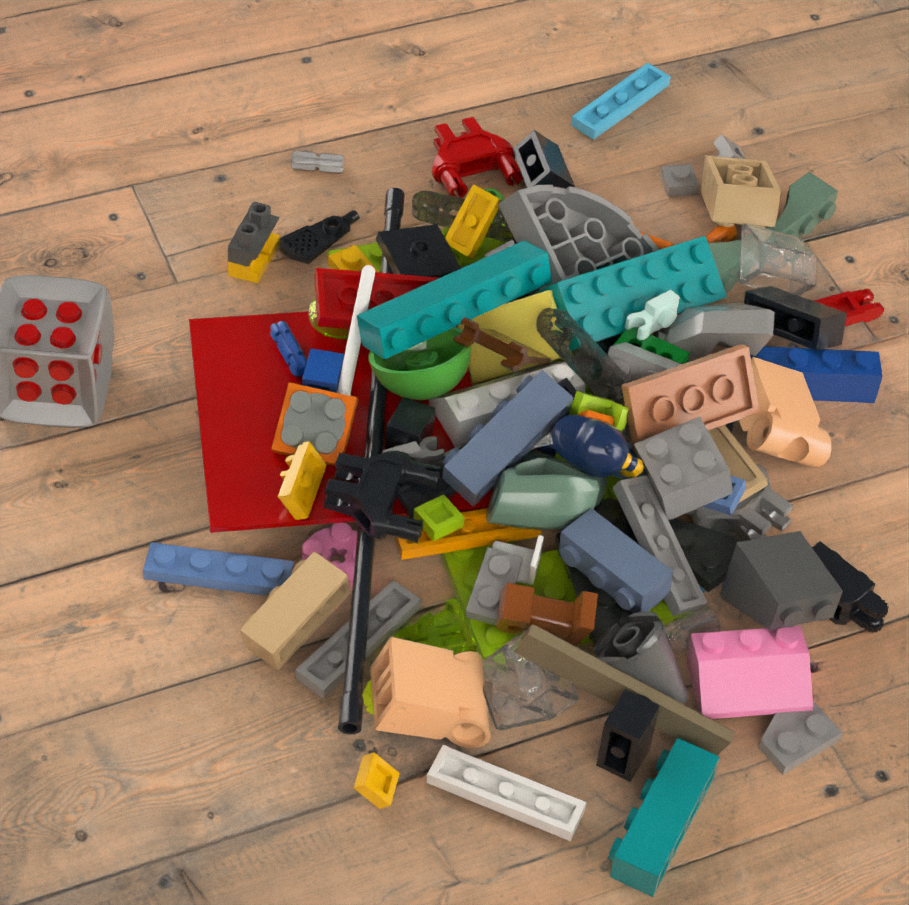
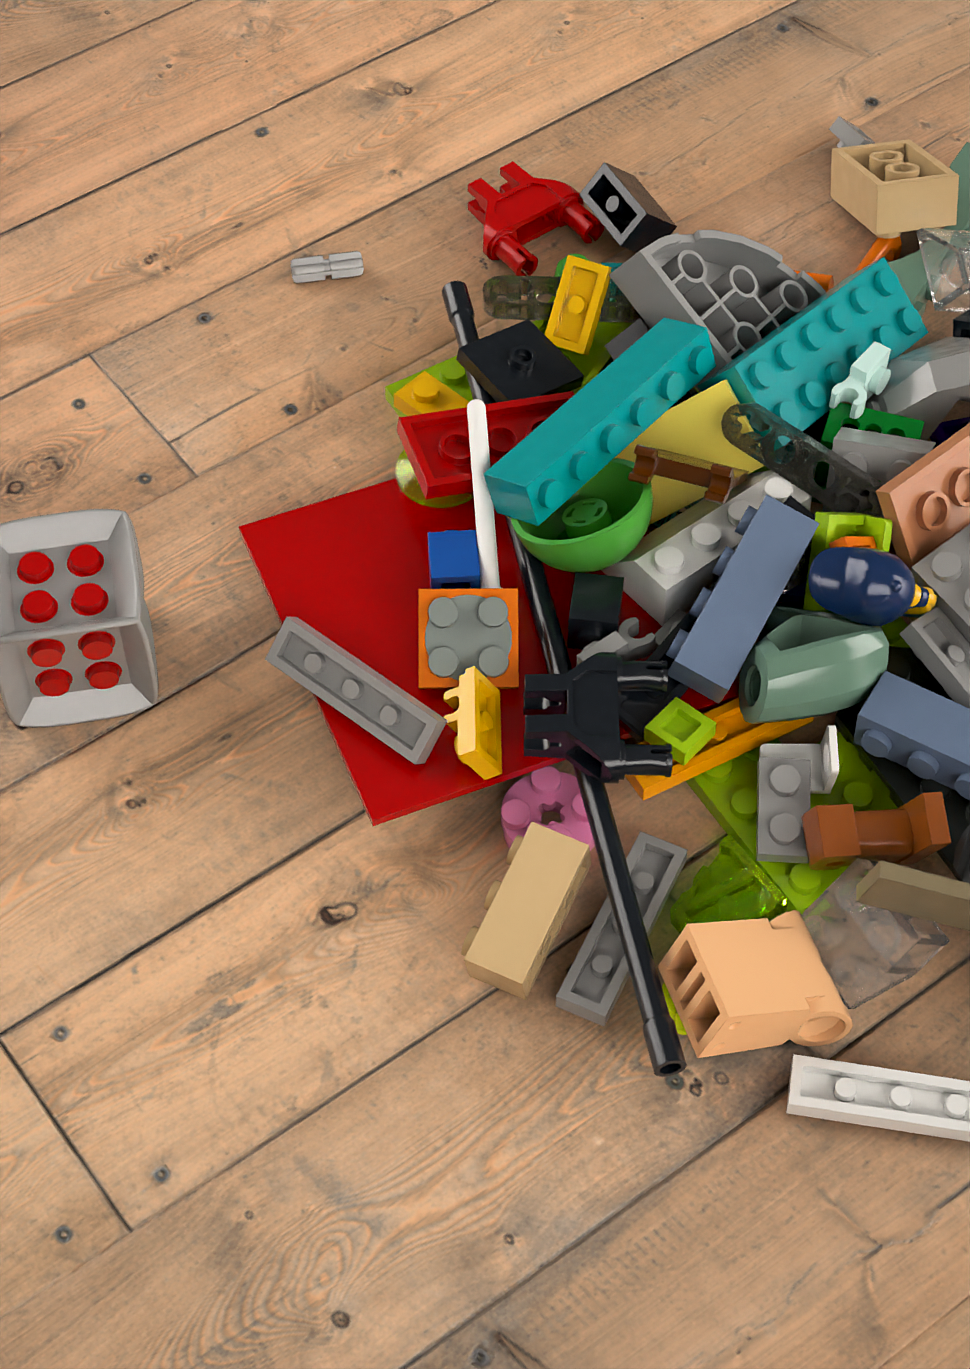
camera: 10 degrees left, 5 degrees up
(215, 569) = (395, 874): medium blue plate -> none
(227, 440) = (356, 690): none -> light grey plate
(253, 244) = (285, 400): dark grey hips -> none
(289, 347) = (392, 537): blue axle -> none
(311, 241) = (357, 377): black piece -> none
(376, 780) = (722, 1130): yellow plate -> none
(620, 101) = (688, 100): medium azure plate -> none
(679, 180) = (800, 188): light grey plate -> none

